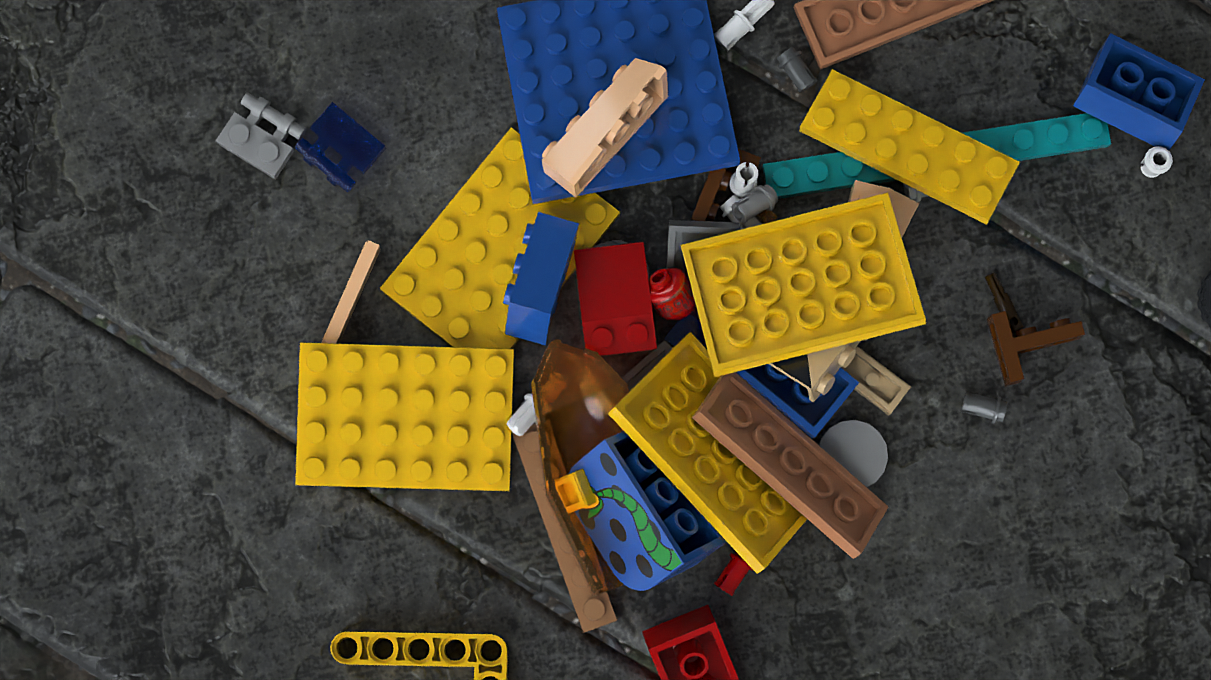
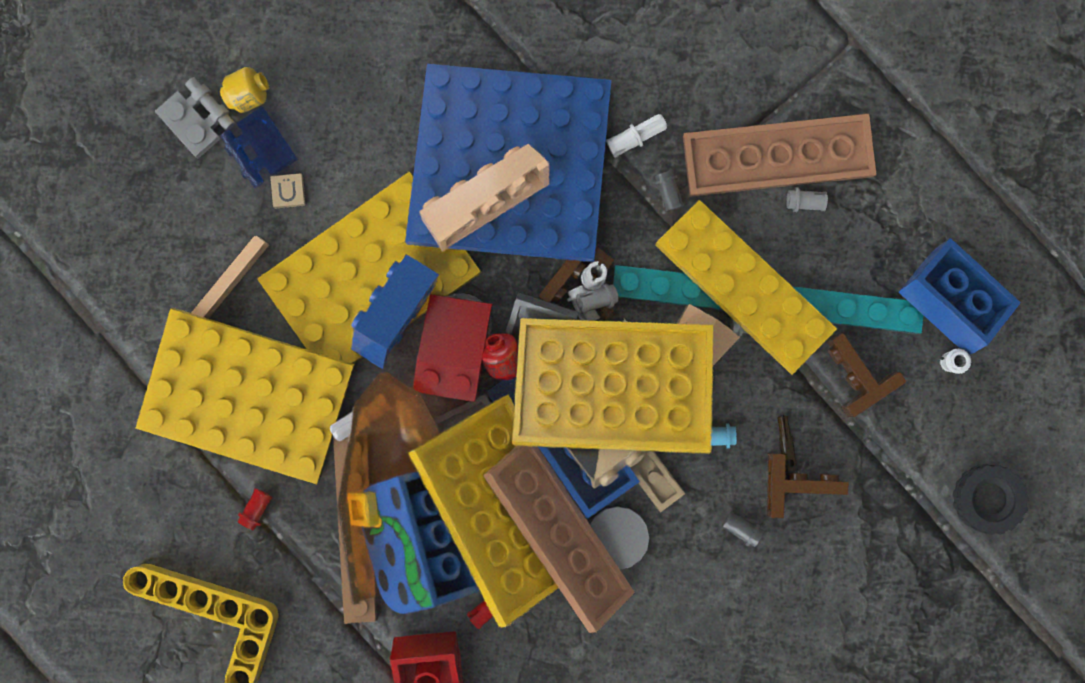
camera: 20 degrees right, 5 degrees up
(308, 90) = (244, 90): none -> yellow head
(385, 185) = (288, 191): none -> tan tile
(449, 537) = (254, 509): none -> red pin
(934, 313) = (723, 436): none -> medium azure pin
(946, 38) = (806, 200): none -> light grey pin
(1059, 207) = (860, 377): none -> reddish brown bracket

